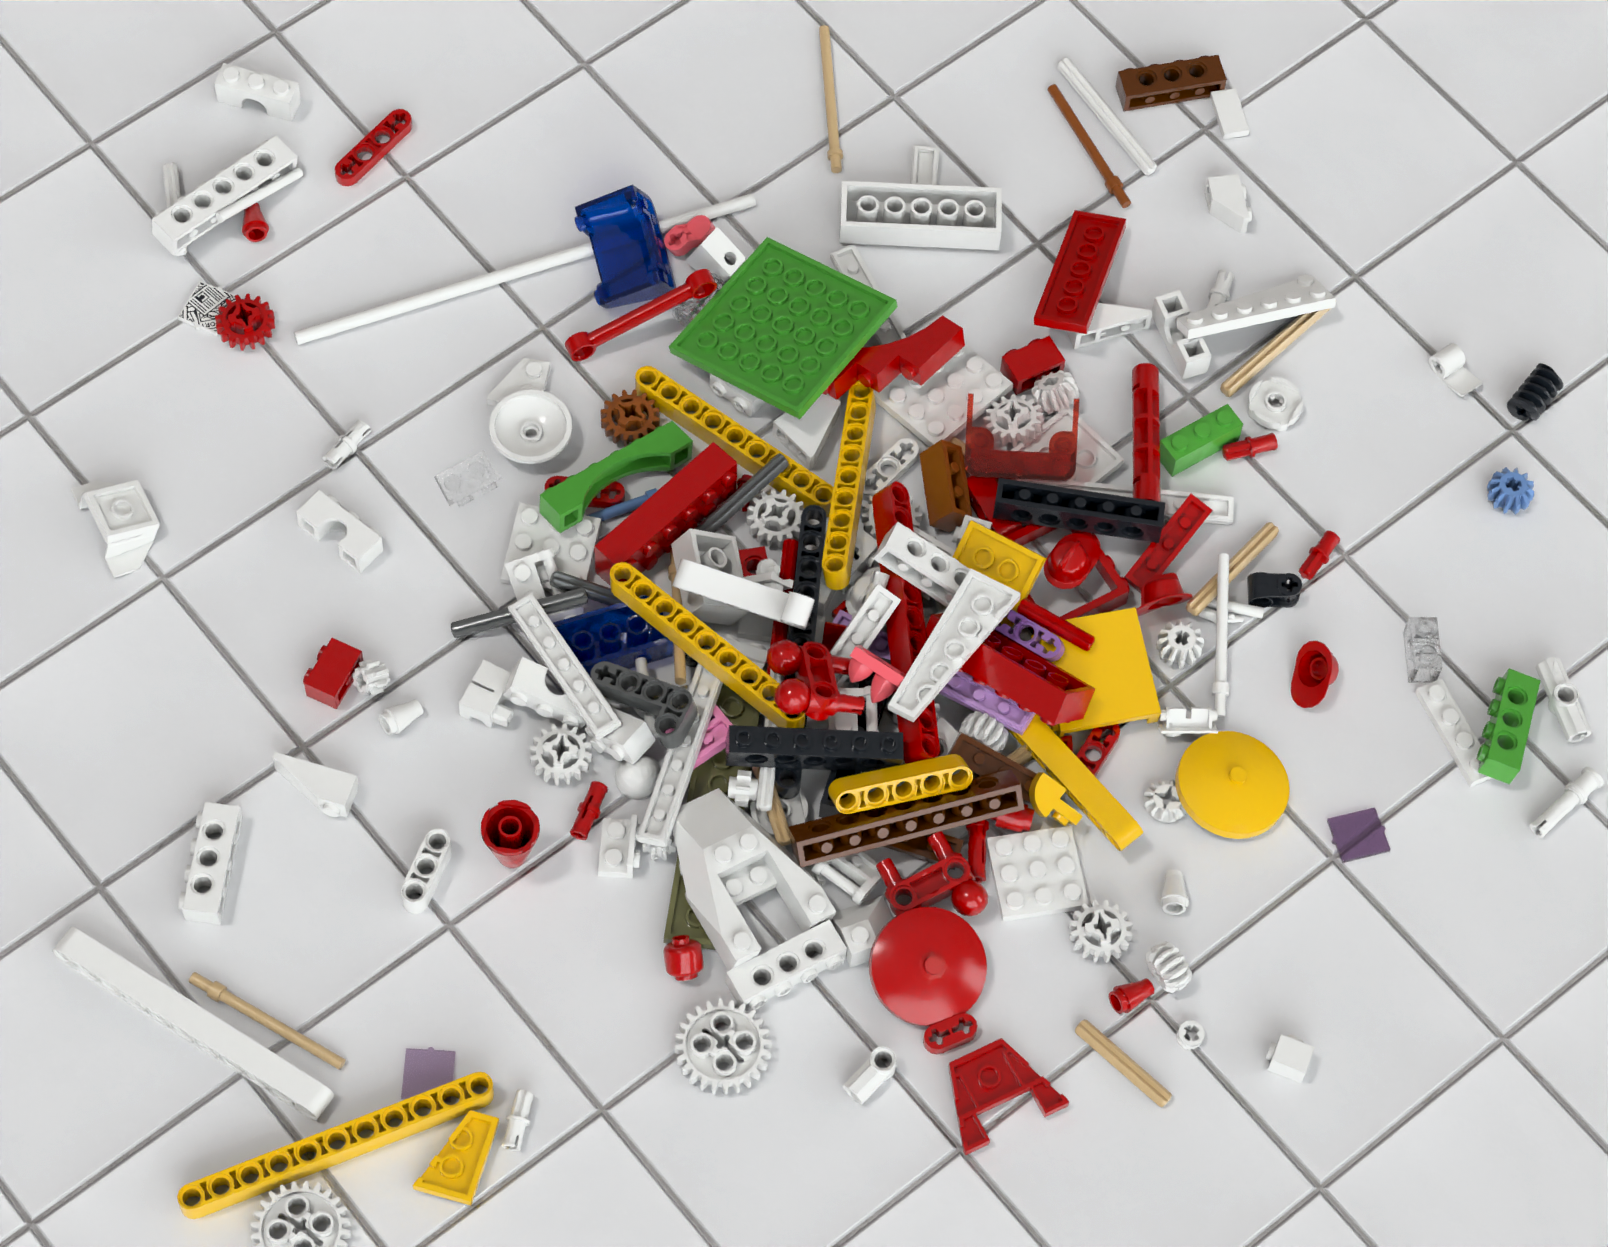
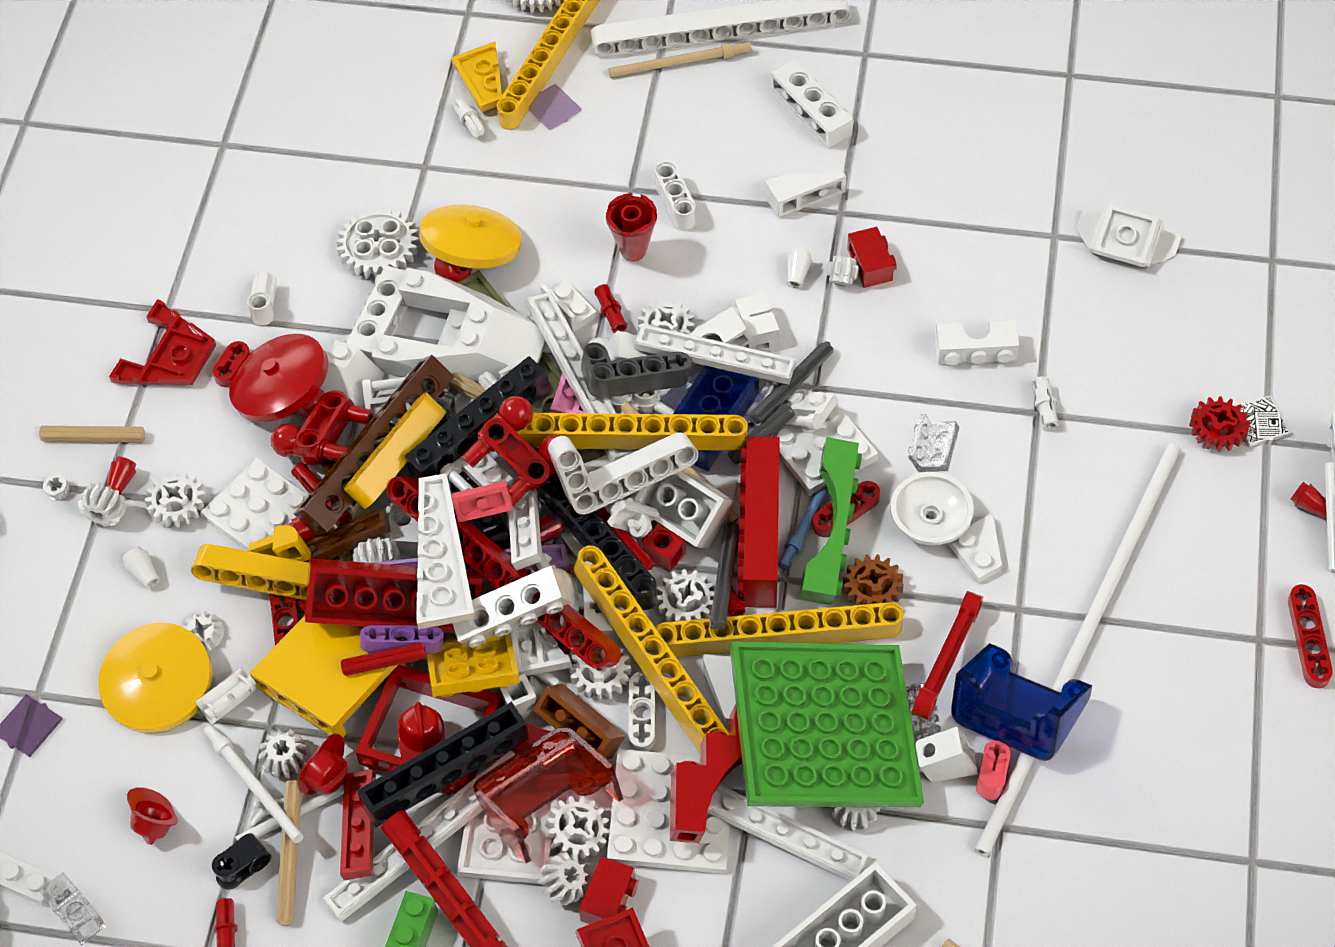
camera: 145 degrees right, 5 degrees down
(643, 969) = (470, 236): none -> yellow dish

